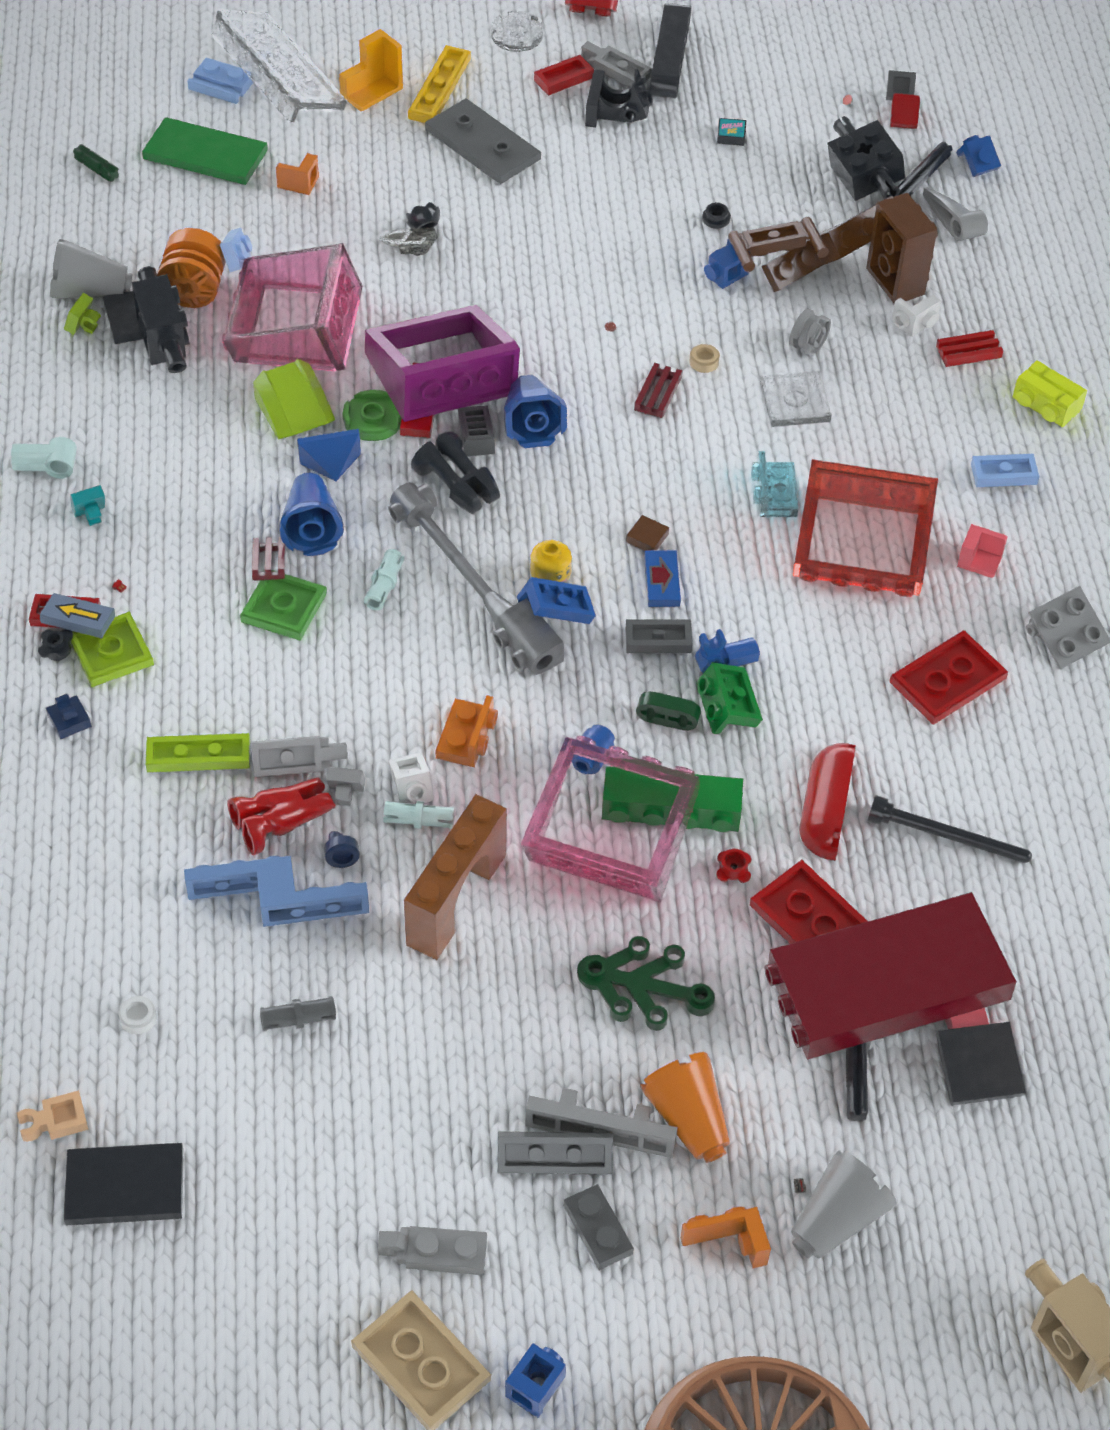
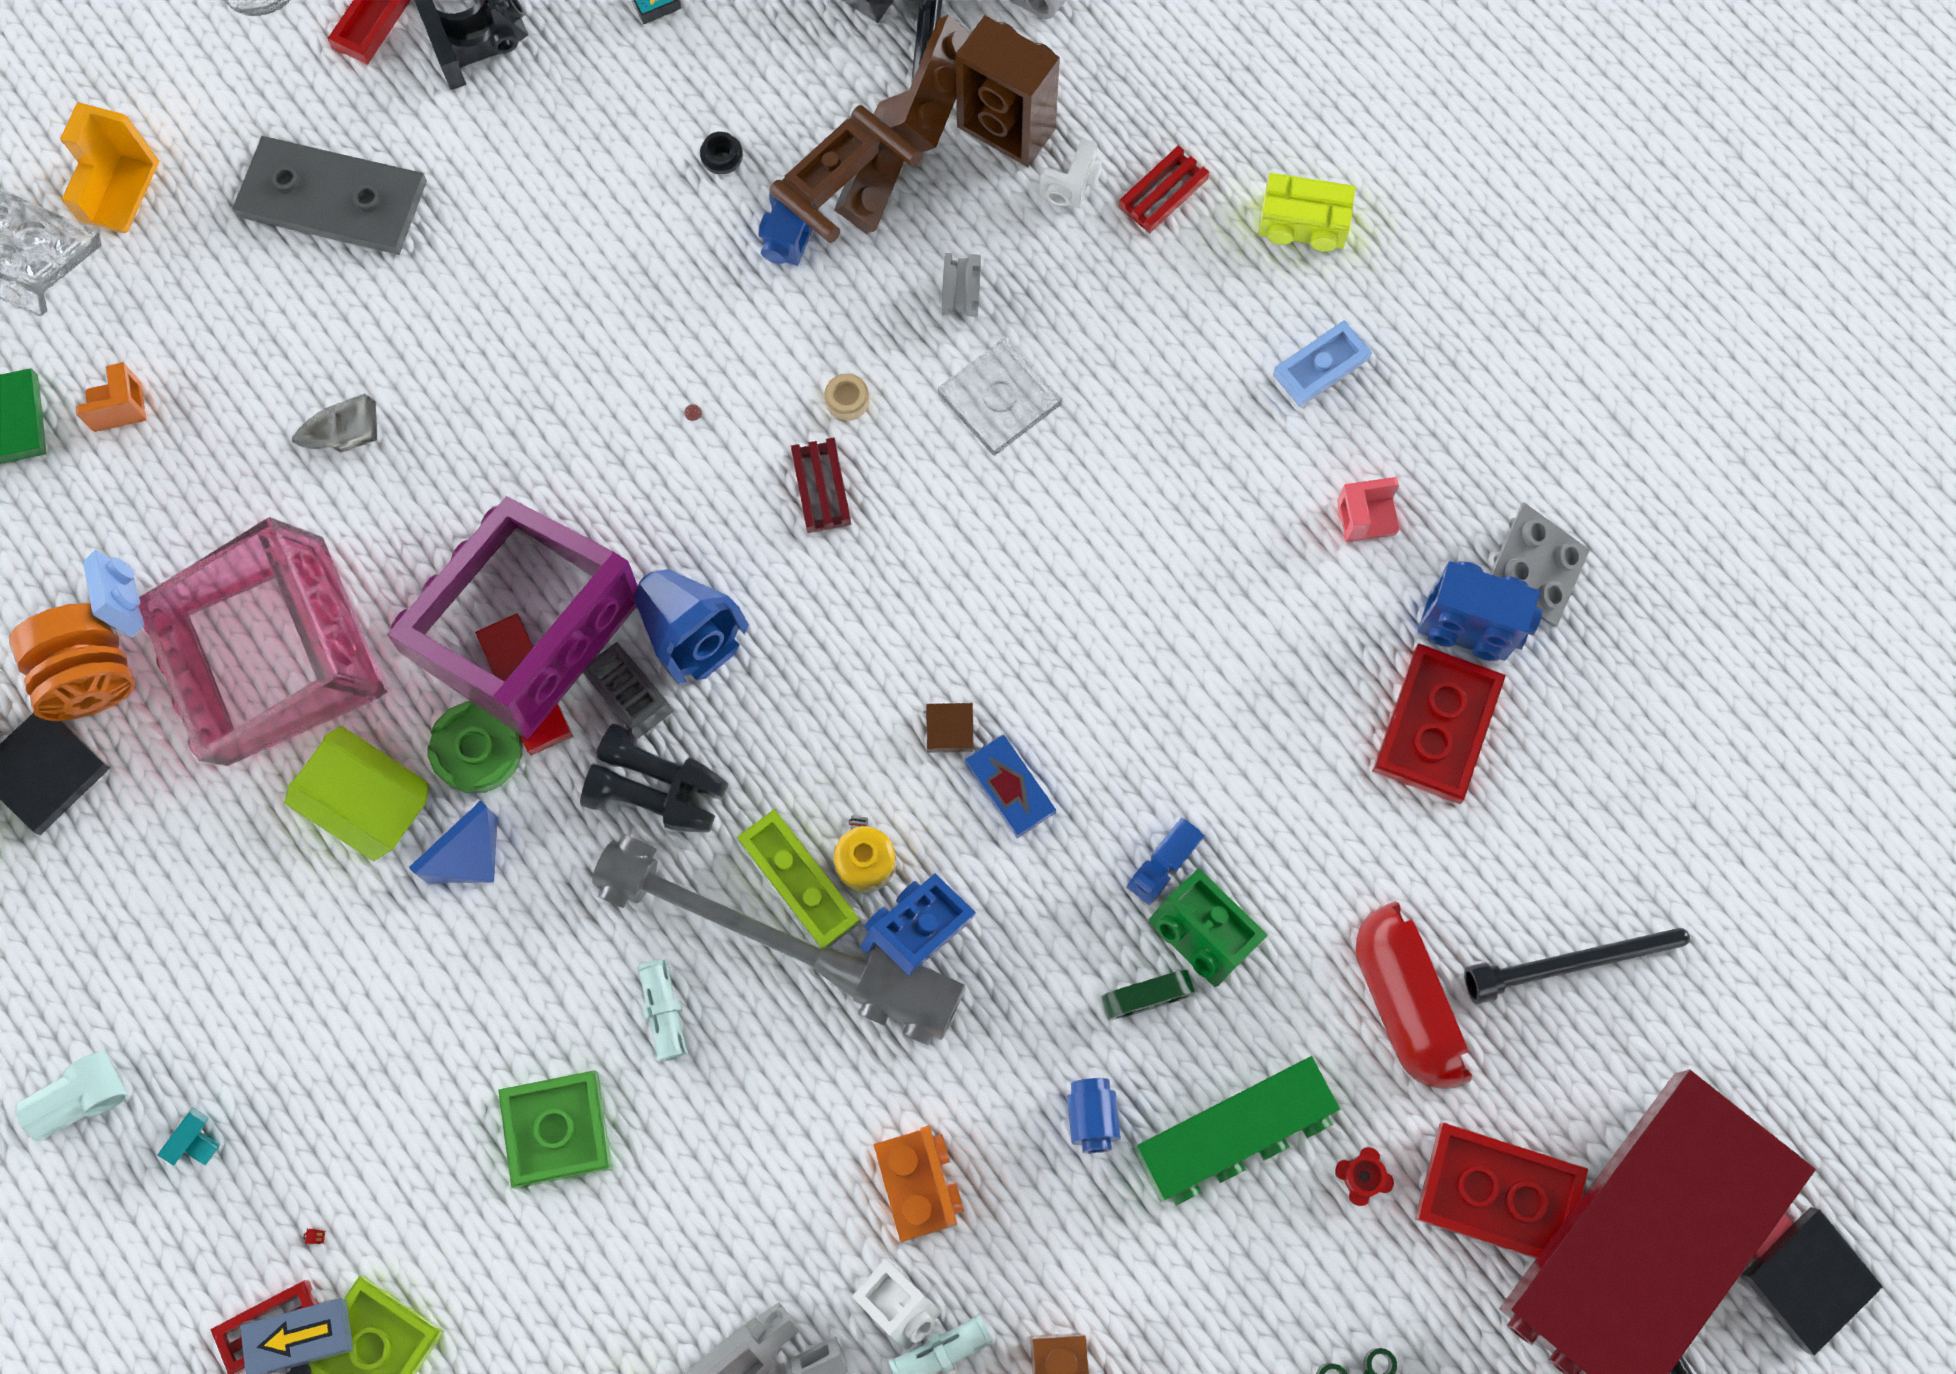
camera: 30 degrees left, 20 degrees up
(160, 319) = (84, 781): black brick -> none
(268, 547) = (474, 1048): tile -> none
(310, 517) = (502, 974): blue cone -> none
(423, 216) = (337, 380): black plate -> none
(439, 84) = (208, 129): yellow tile -> none
(506, 556) = (799, 880): none -> lime plate
(598, 868) = (1218, 1308): clear pink windscreen -> none
(658, 636) = (1064, 884): dark grey plate -> none
(775, 487) = (1063, 556): clear light blue bracket -> none
(871, 489) = (1291, 530): clear red windscreen -> none
(1009, 622) = (1480, 611): none -> blue brick

